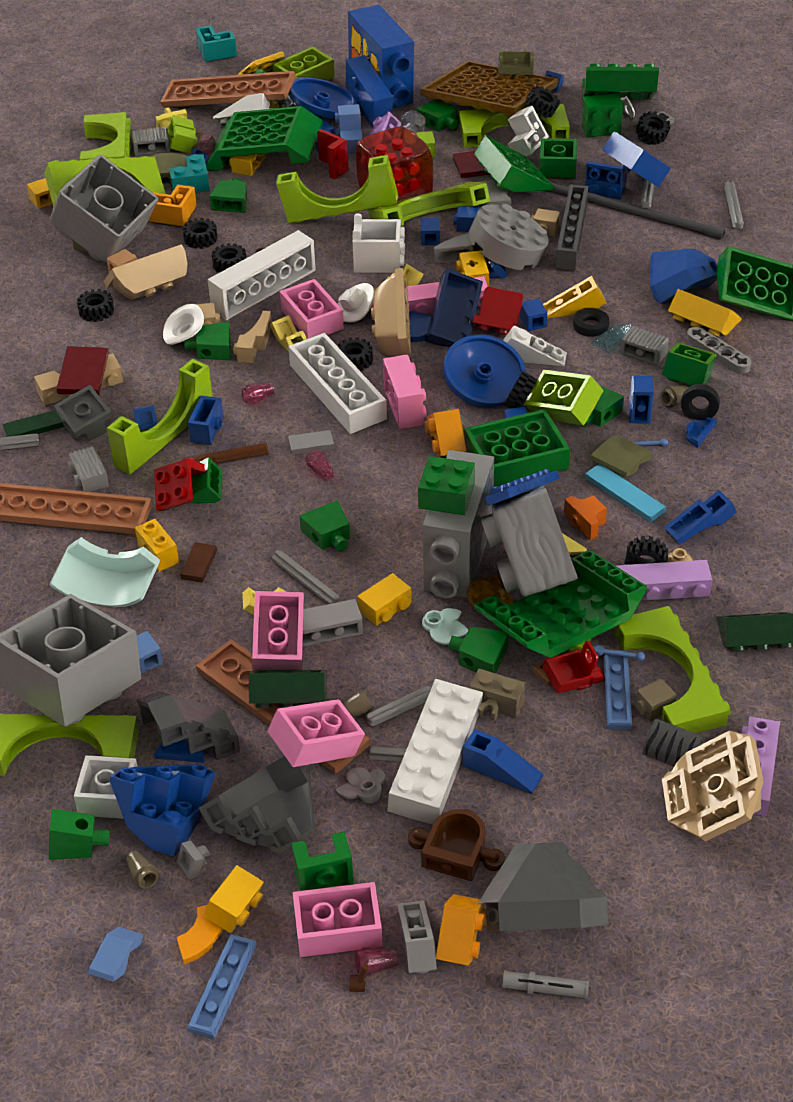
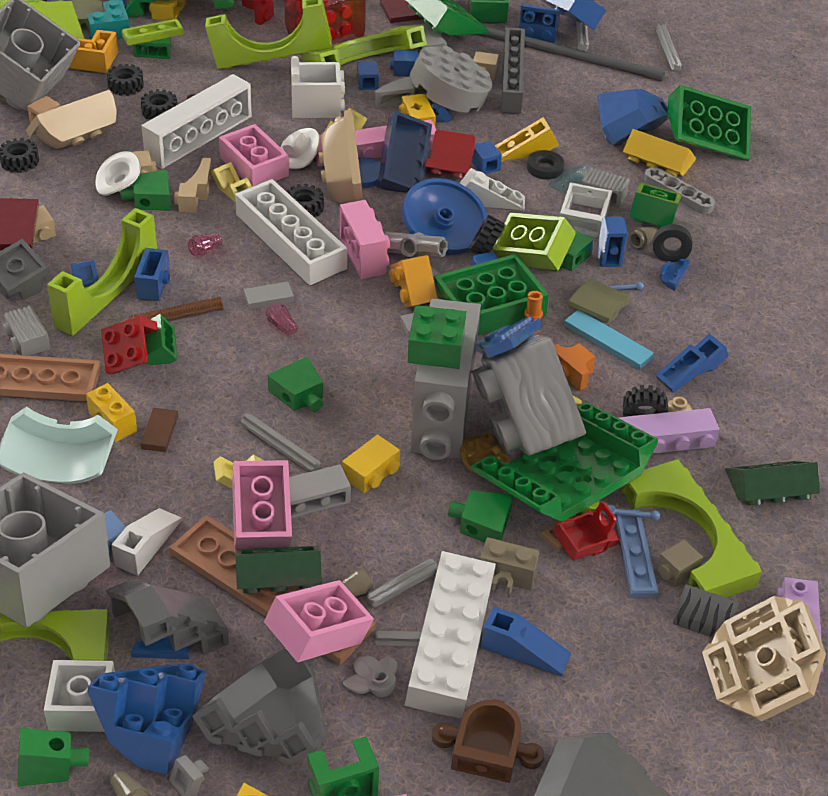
camera: 10 degrees left, 0 degrees up
(173, 658) = (143, 539): none -> white slope
(229, 187) = (152, 32): none -> lime tile
(445, 625) = (438, 490): light aqua plate -> none
(452, 398) = (423, 244): none -> light grey piece
(554, 462) = (534, 306): none -> orange axle
(617, 379) = (584, 222): none -> white window

